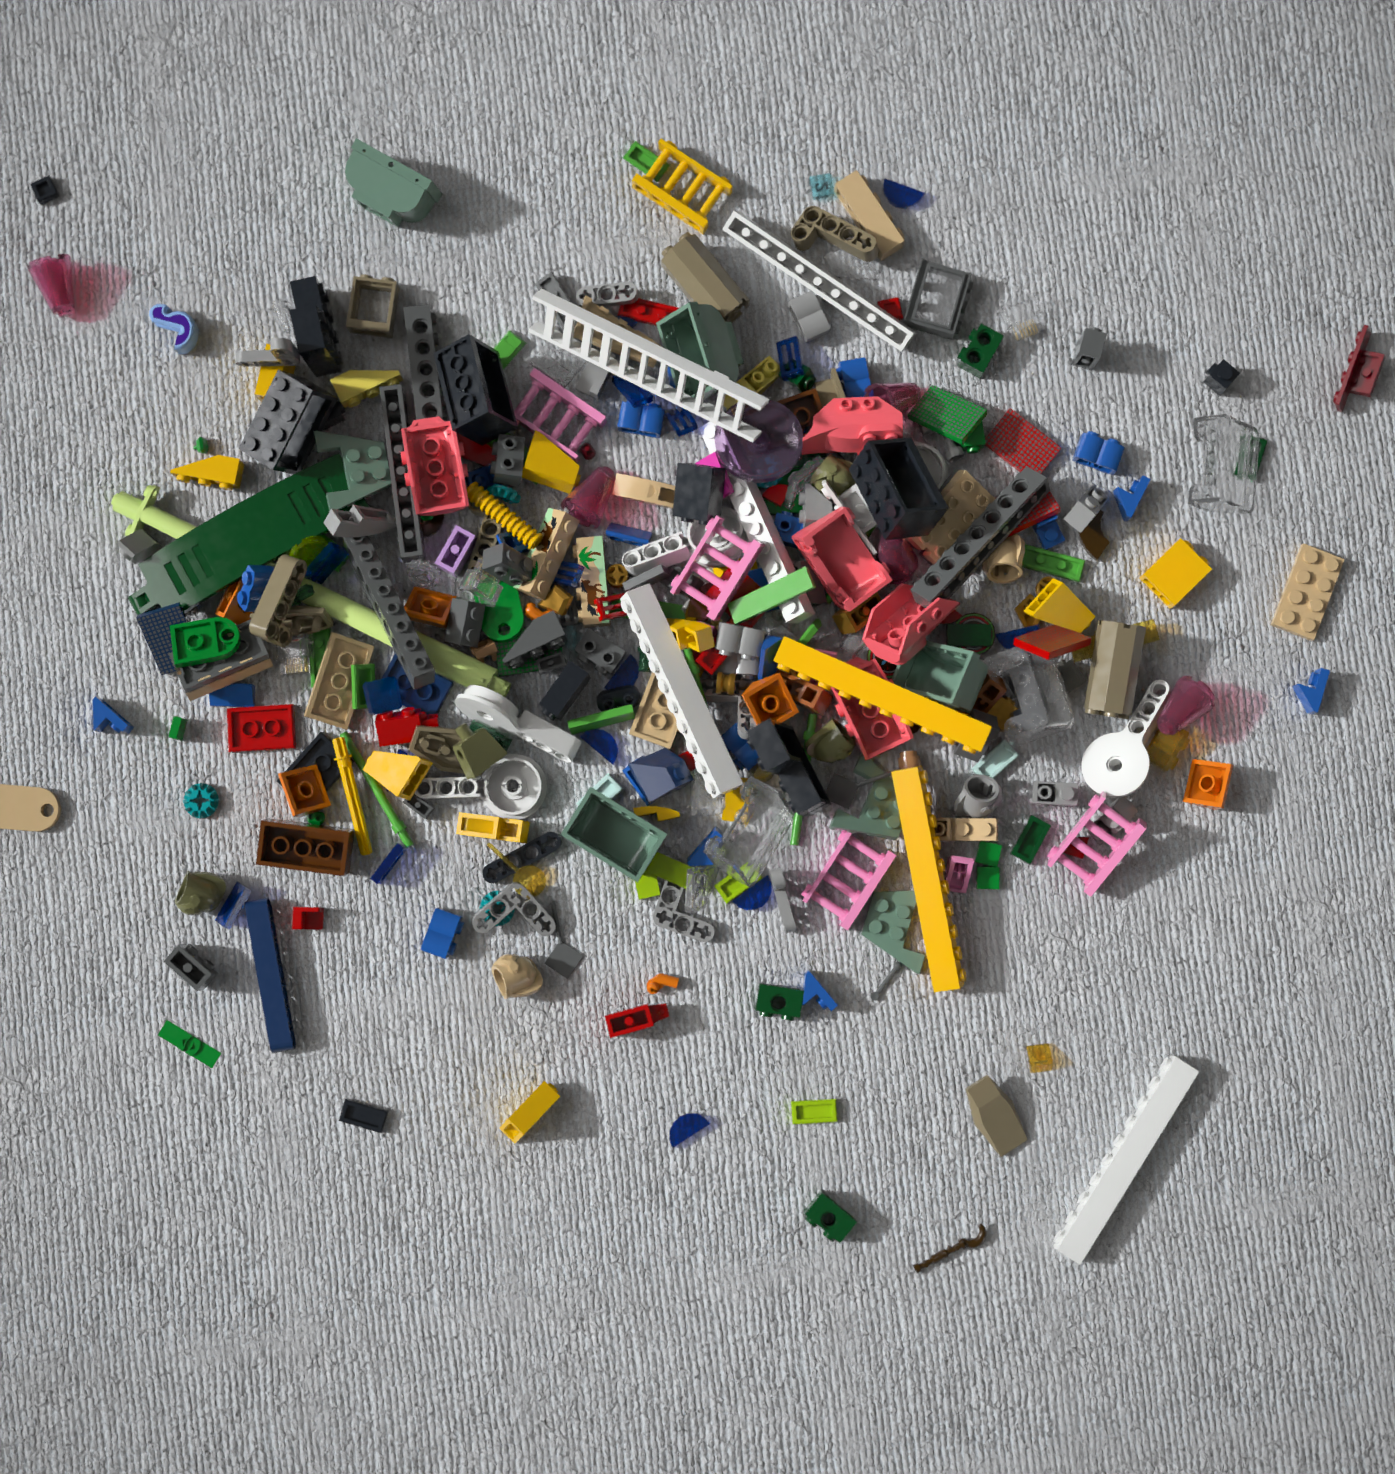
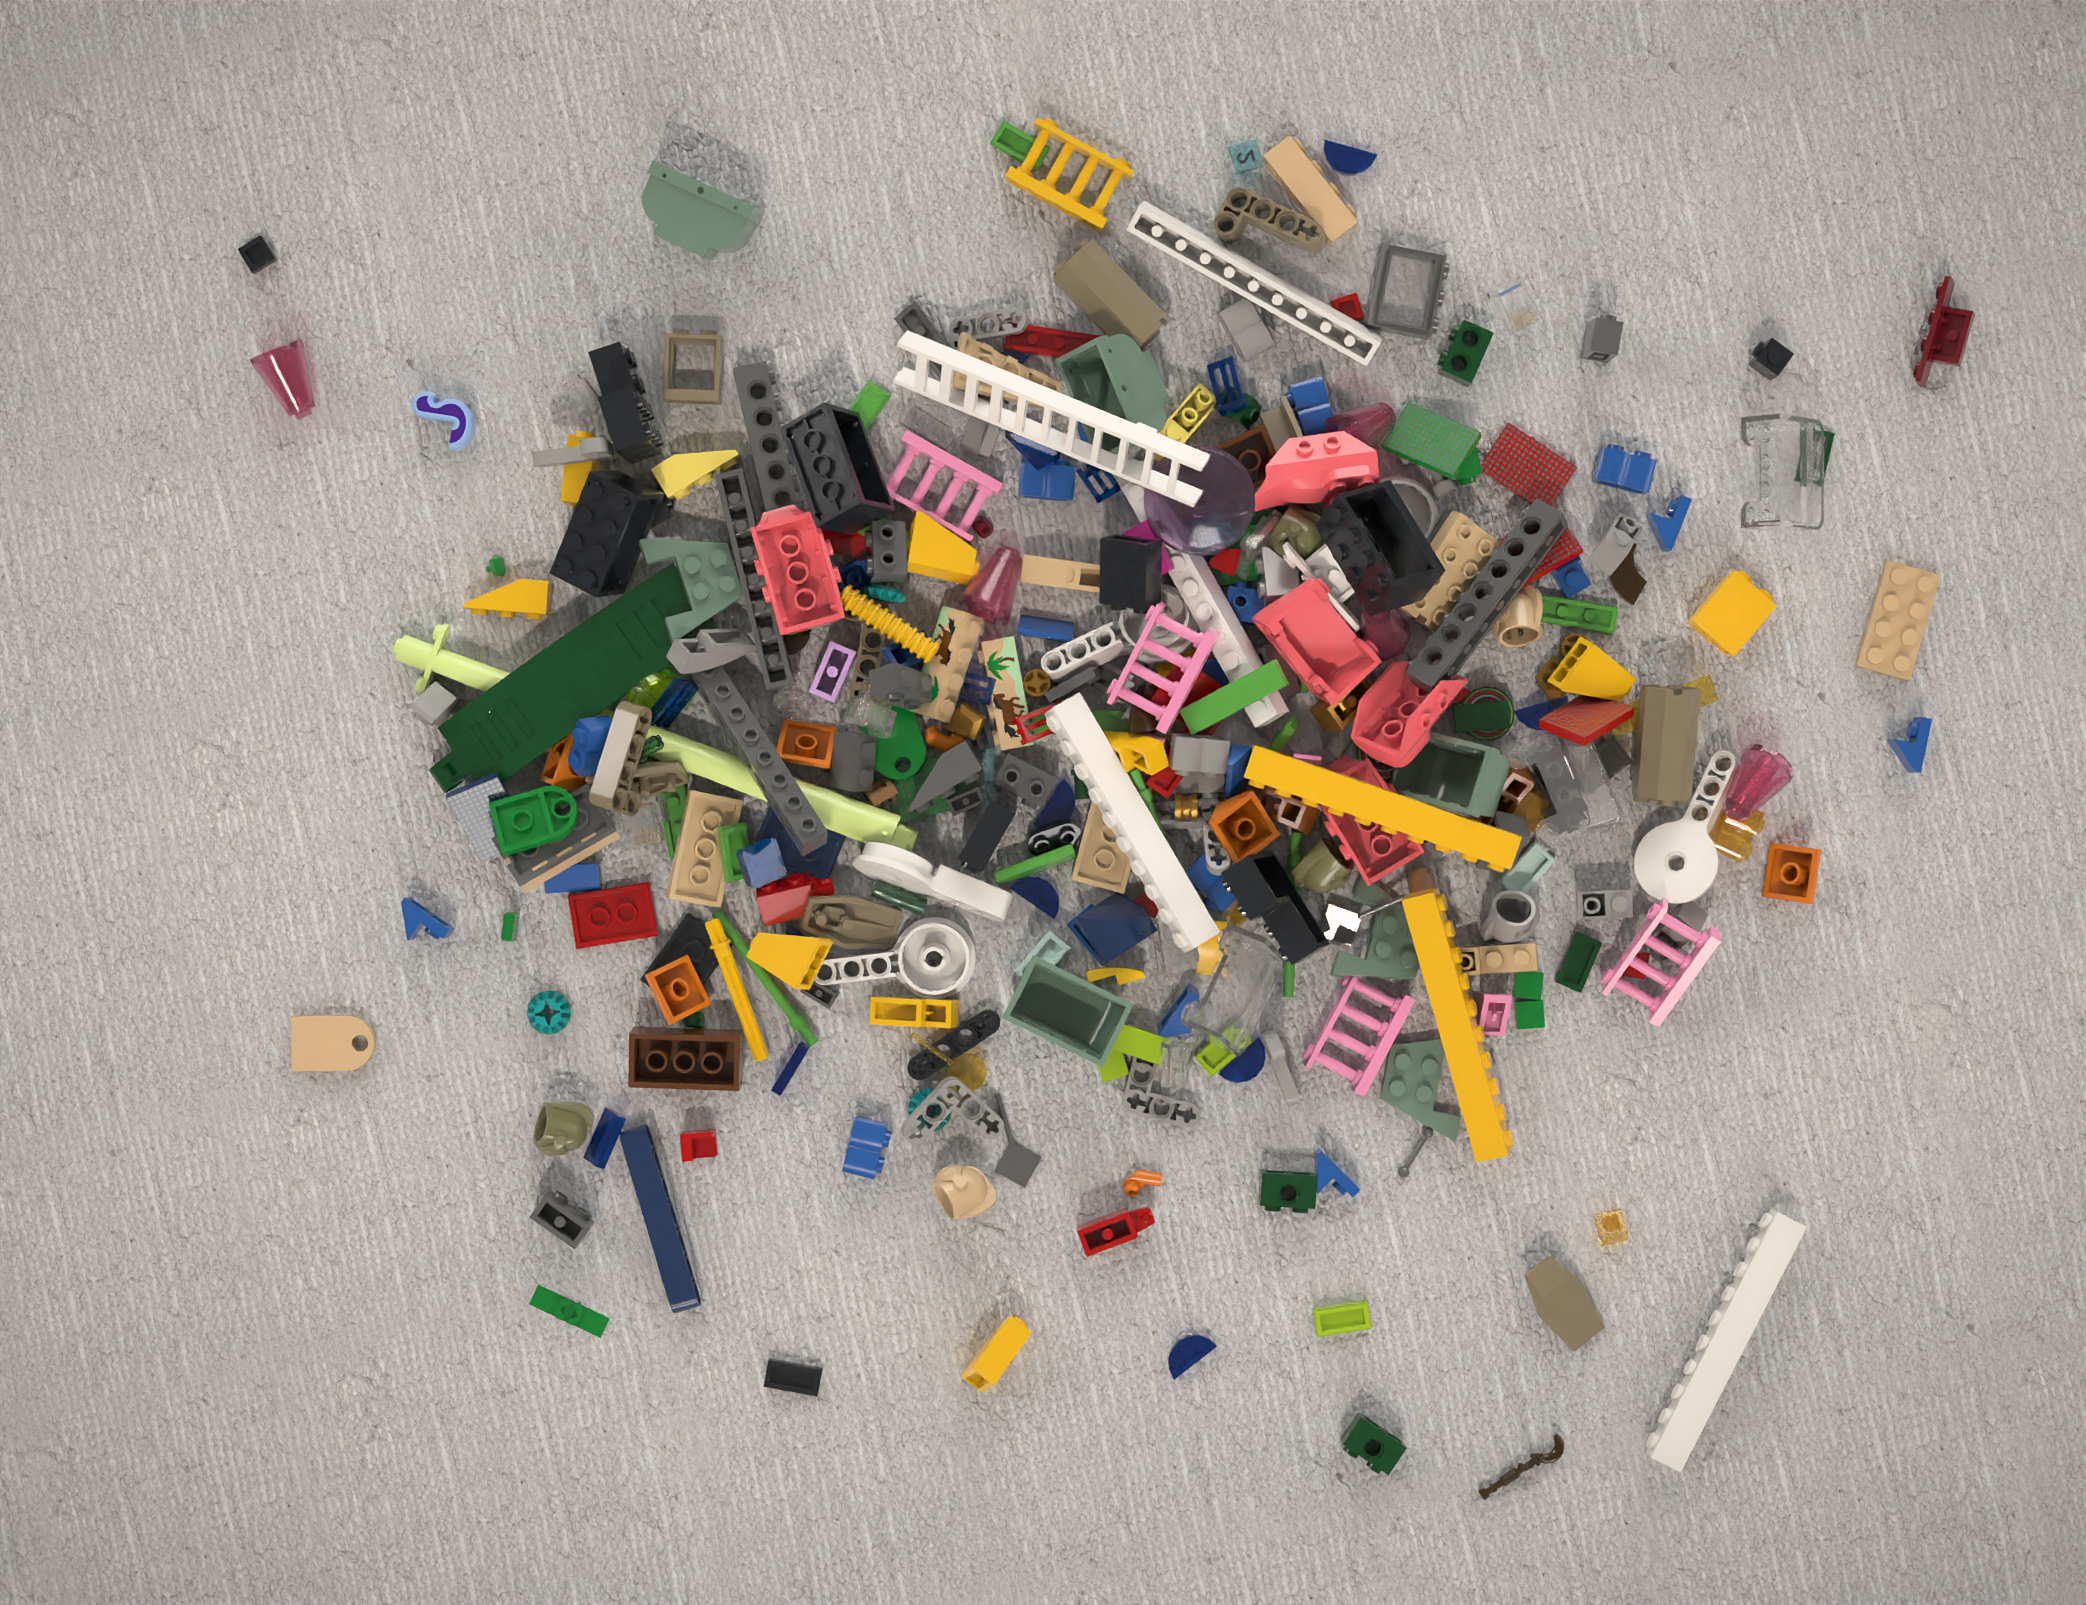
camera: 15 degrees left, 5 degrees up
(476, 750) = (886, 921): olive torso -> none

